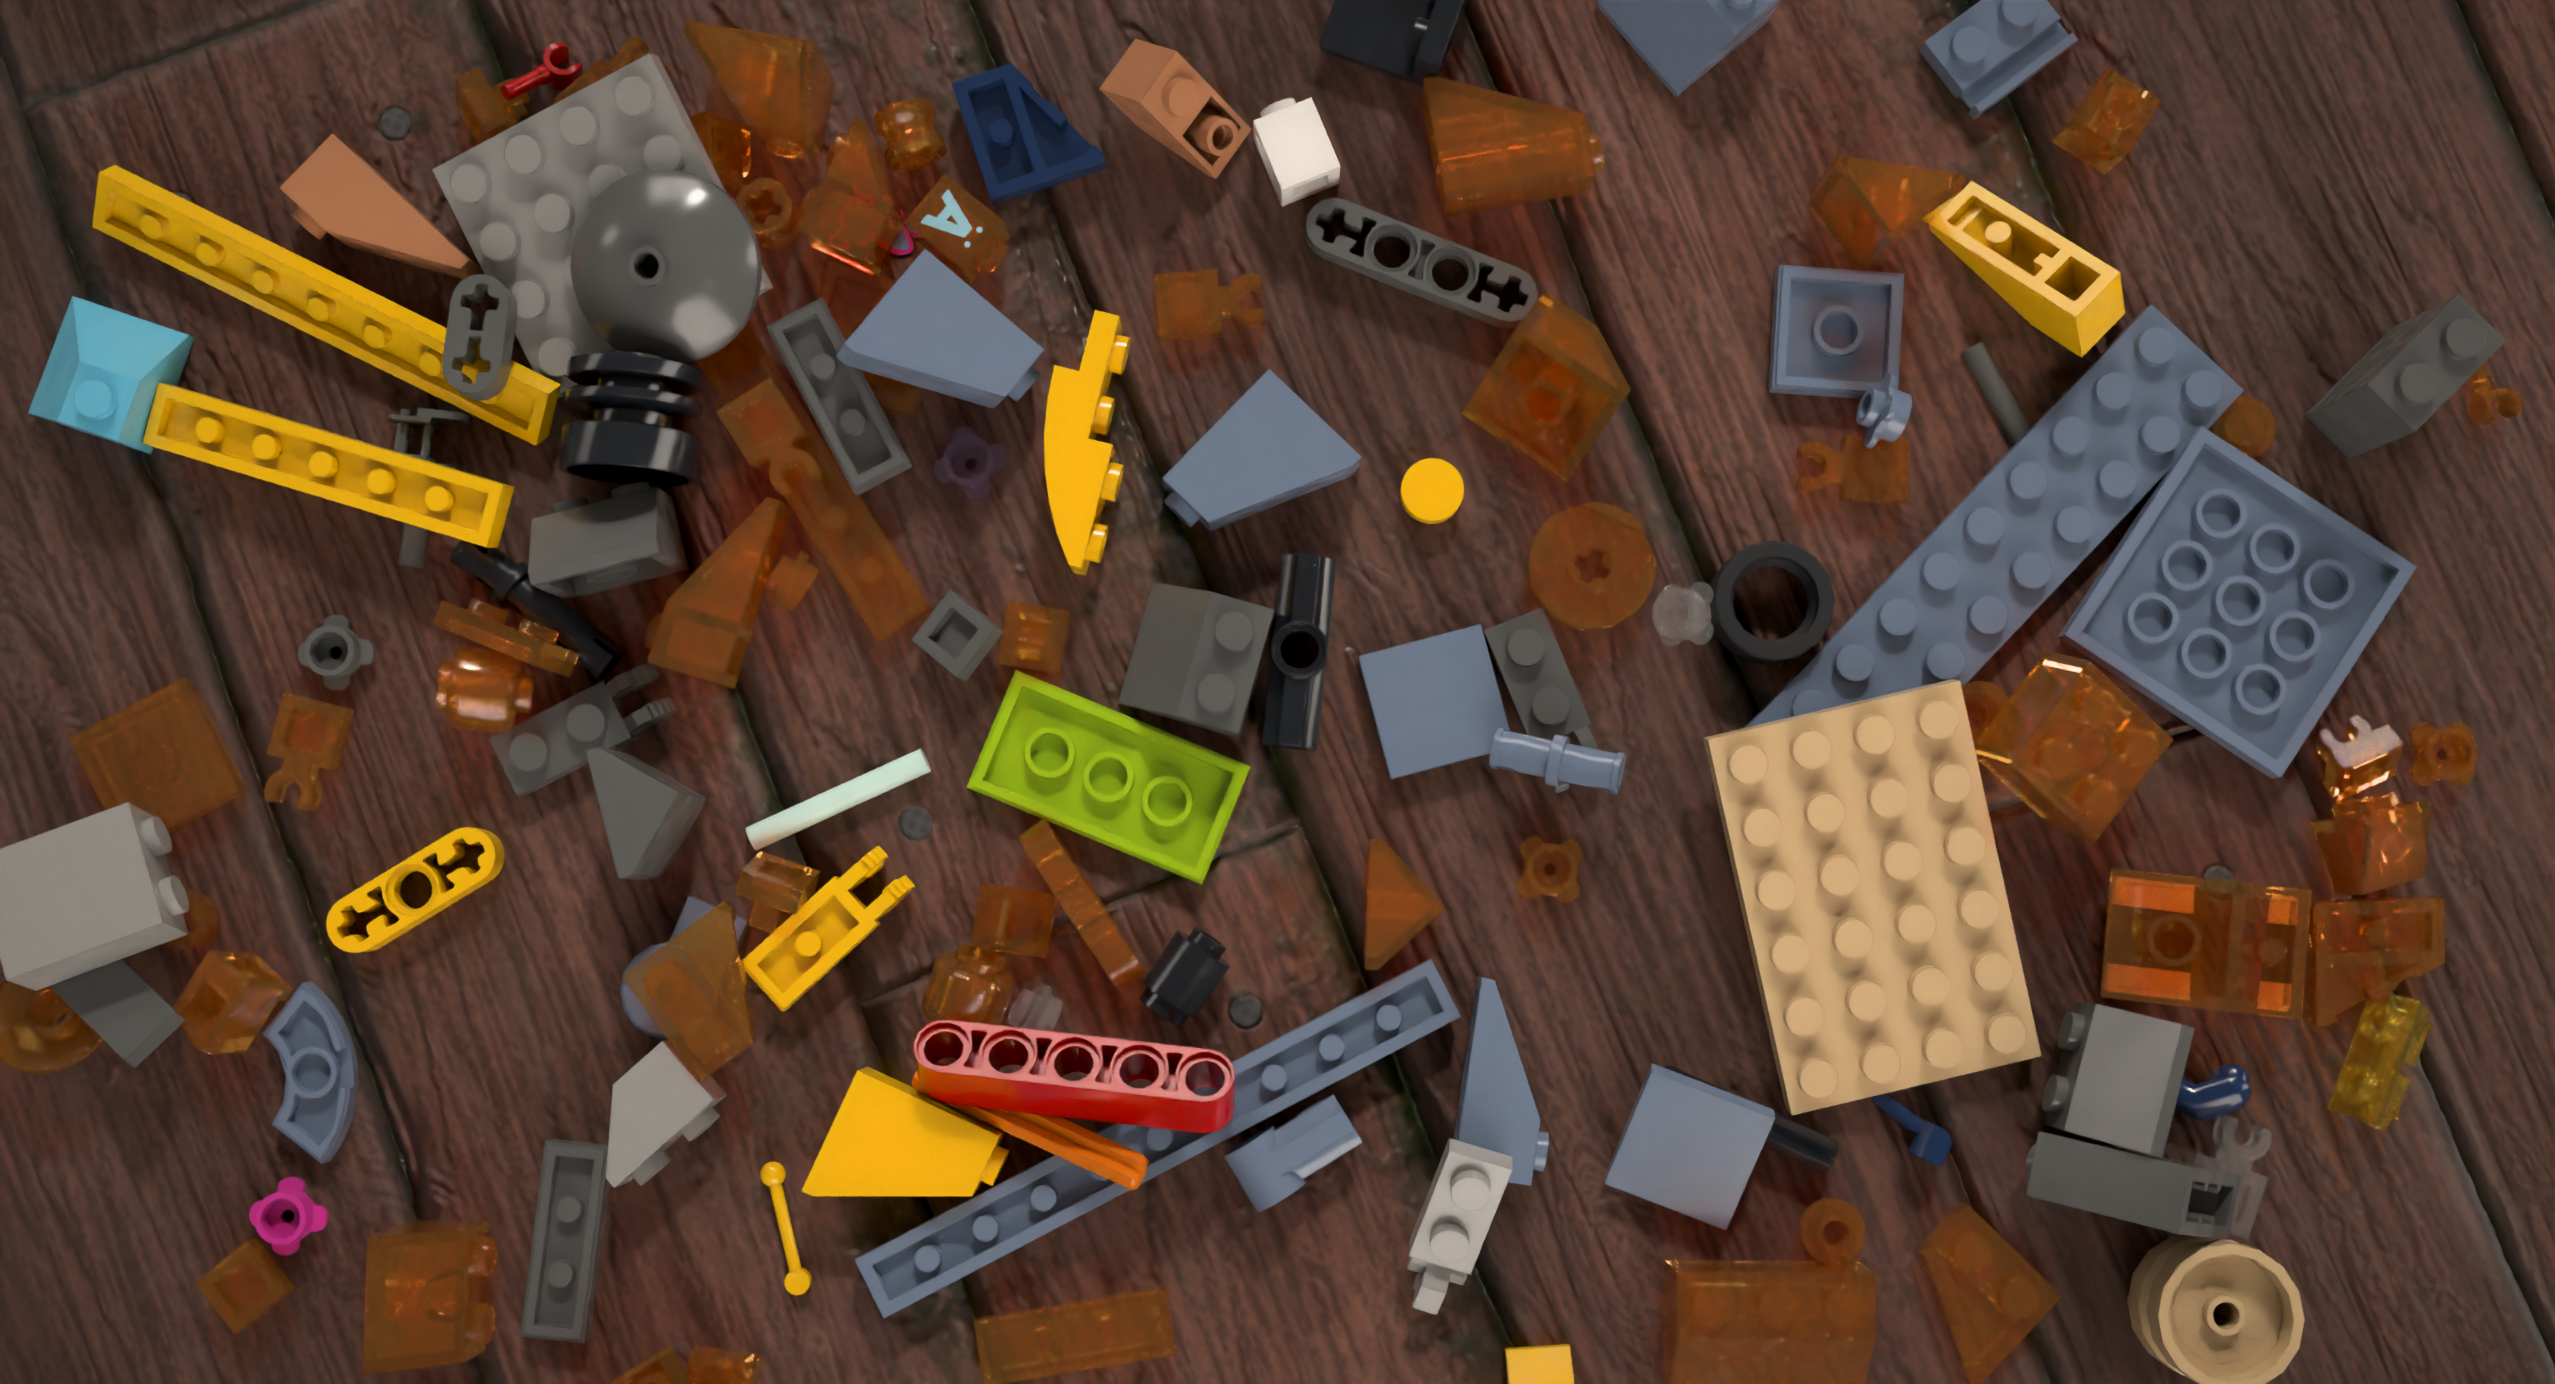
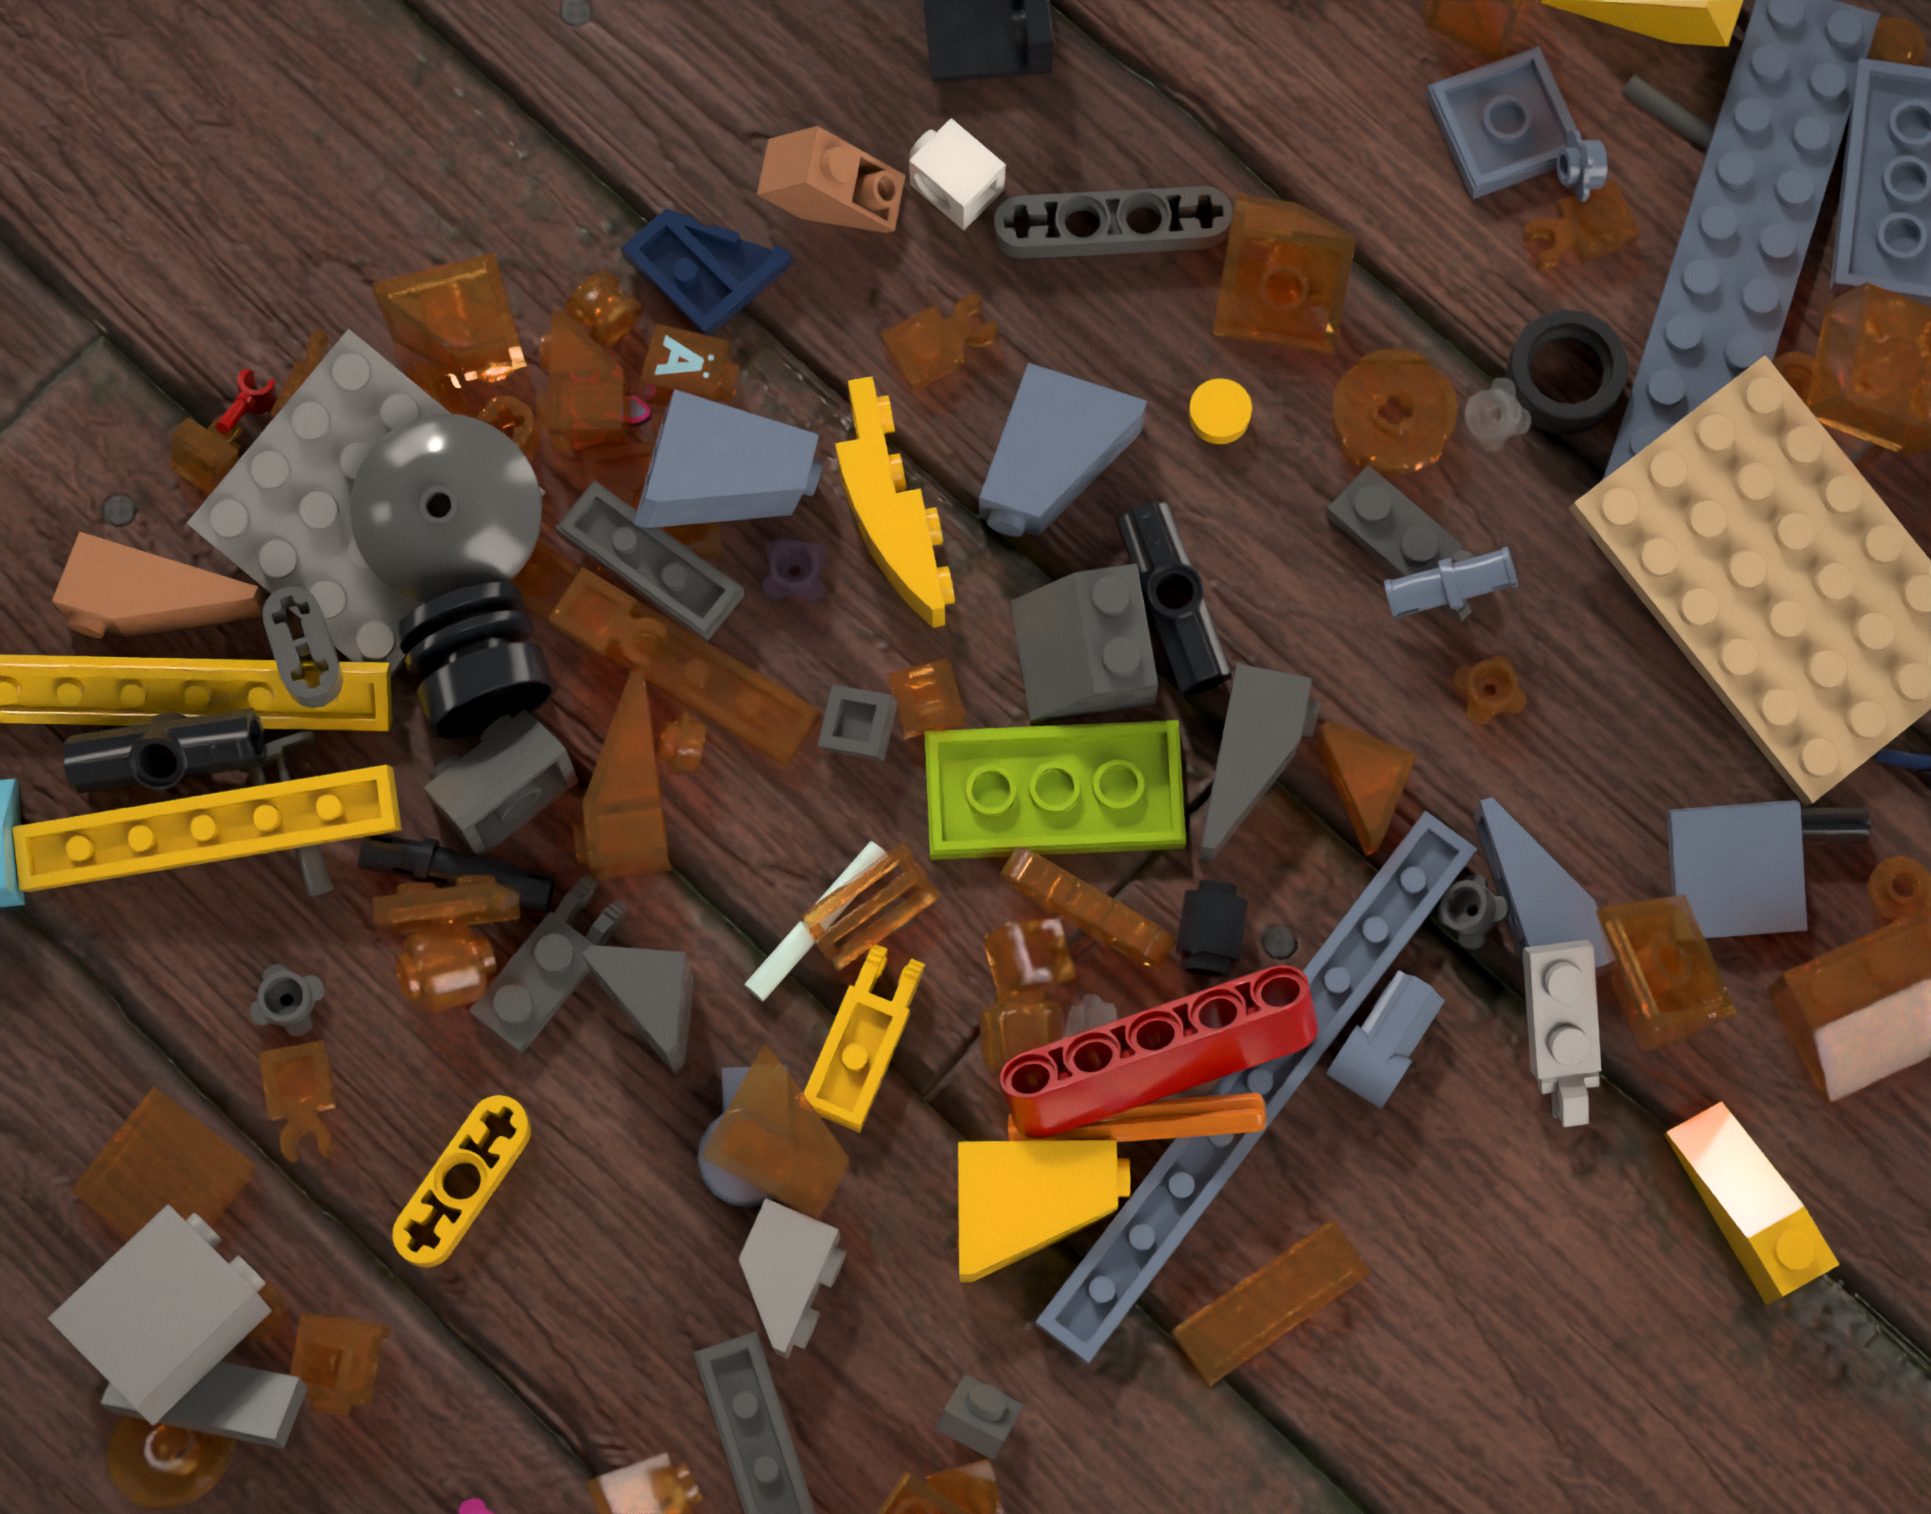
camera: 25 degrees left, 10 degrees down
(318, 1072) = (448, 1392): sand blue tile -> none
(323, 374) = (130, 758): none -> black piece
(765, 1319) = (979, 1416): none -> dark grey plate
(776, 888) = (800, 1020): clear orange tile -> none
(798, 1278) = (920, 1288): yellow hinge -> none
(892, 833) = (913, 876): none -> clear orange tile
(1311, 820) = (1258, 741): none -> dark grey slope
(1416, 1059) = (1460, 900): none -> dark grey plate
(1433, 700) = (1313, 591): sand blue tile -> none
(1504, 148) = (1137, 92): clear orange slope -> none
(1571, 1216) = (1663, 971): none -> clear orange slope

